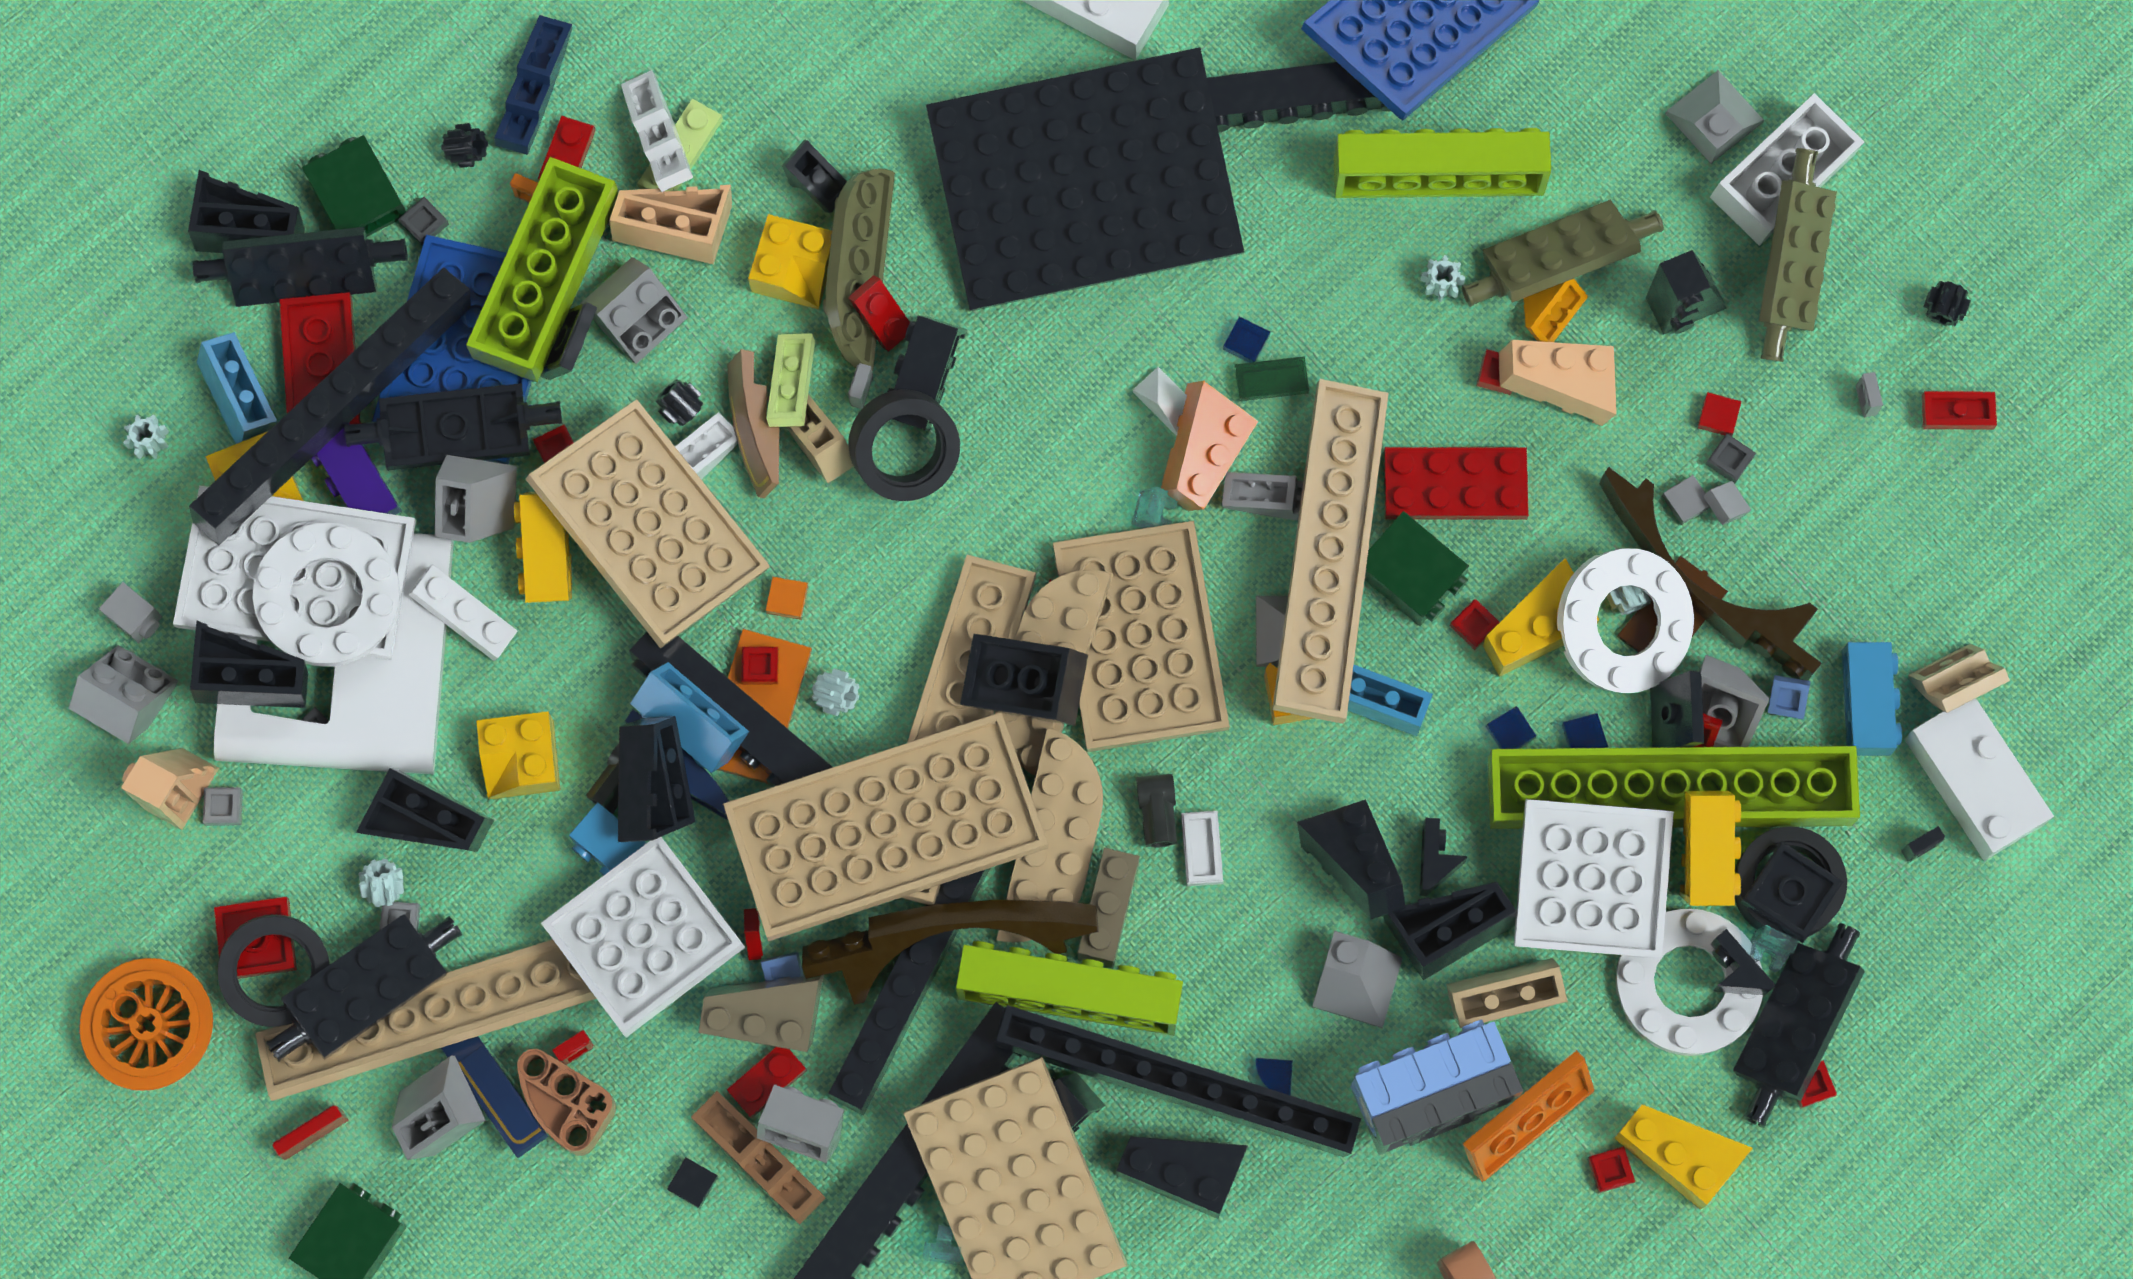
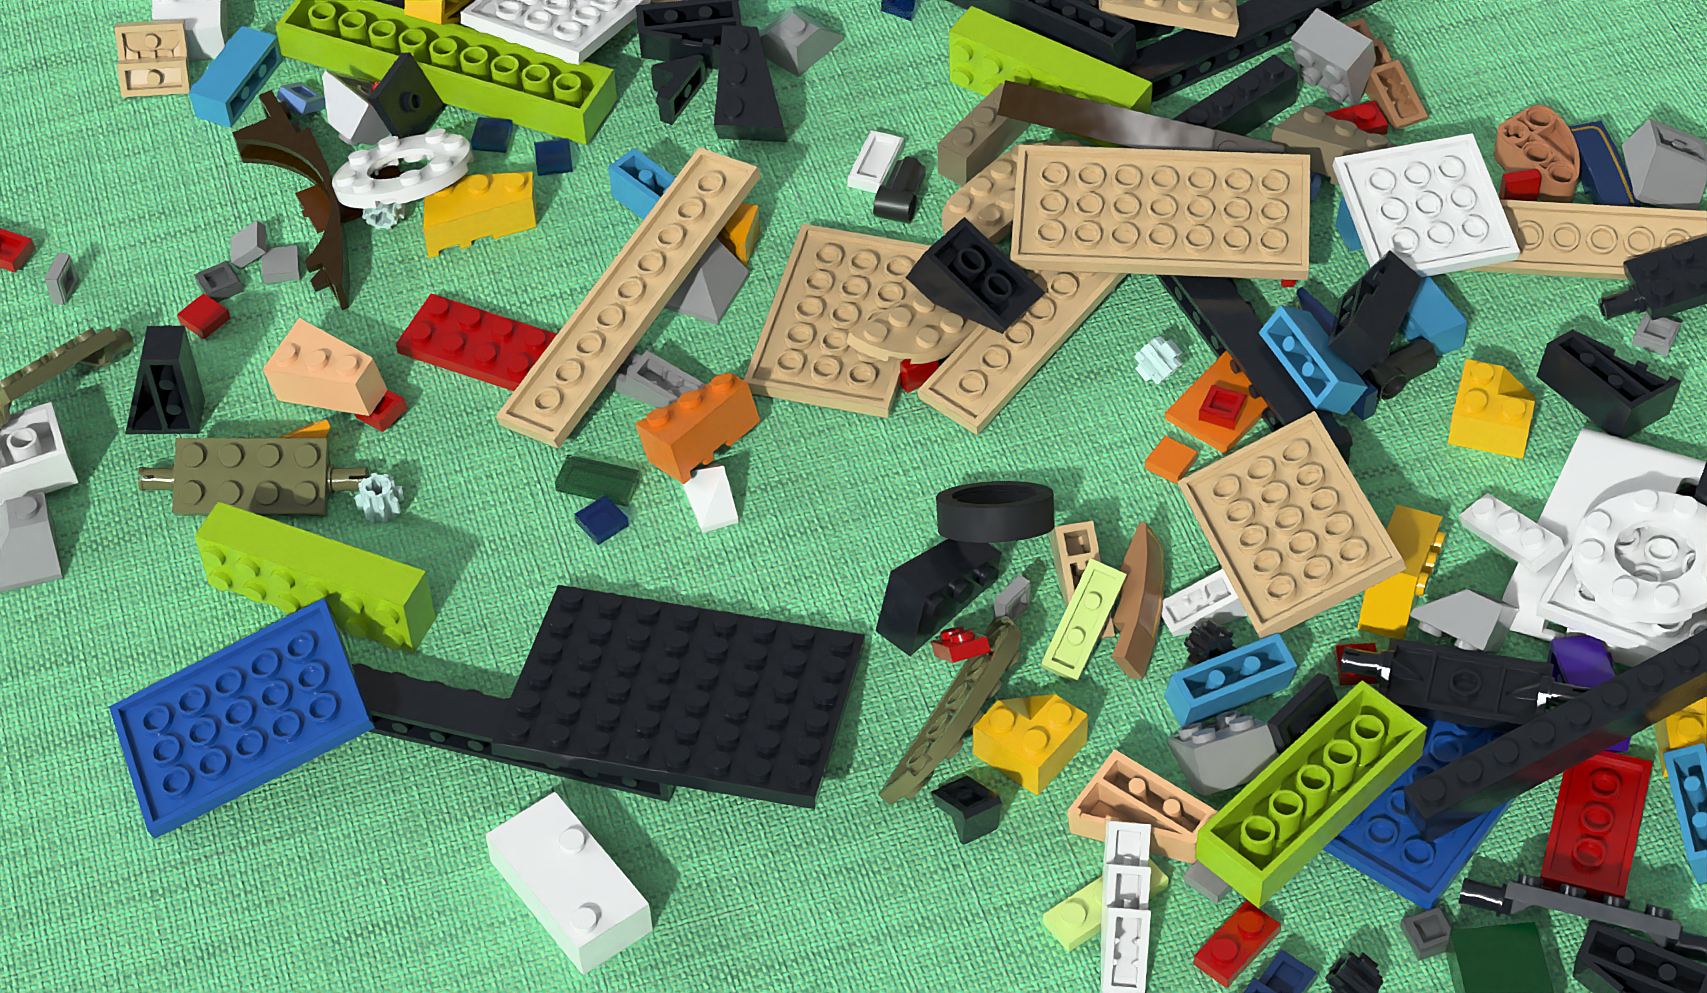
camera: 155 degrees left, 25 degrees down
(381, 882) = (1664, 342): light aqua gear -> none
(523, 187) = (1294, 909): orange tile -> none
(650, 365) = (1230, 680): none -> dark azure brick
(692, 1183) = (1444, 79): black tile -> none
(752, 934) = (1318, 218): red tile -> none
(1150, 508) = (778, 407): clear light blue tile -> none
(1414, 569) = (556, 279): dark green brick -> none
(1474, 624) = (533, 238): red tile -> none

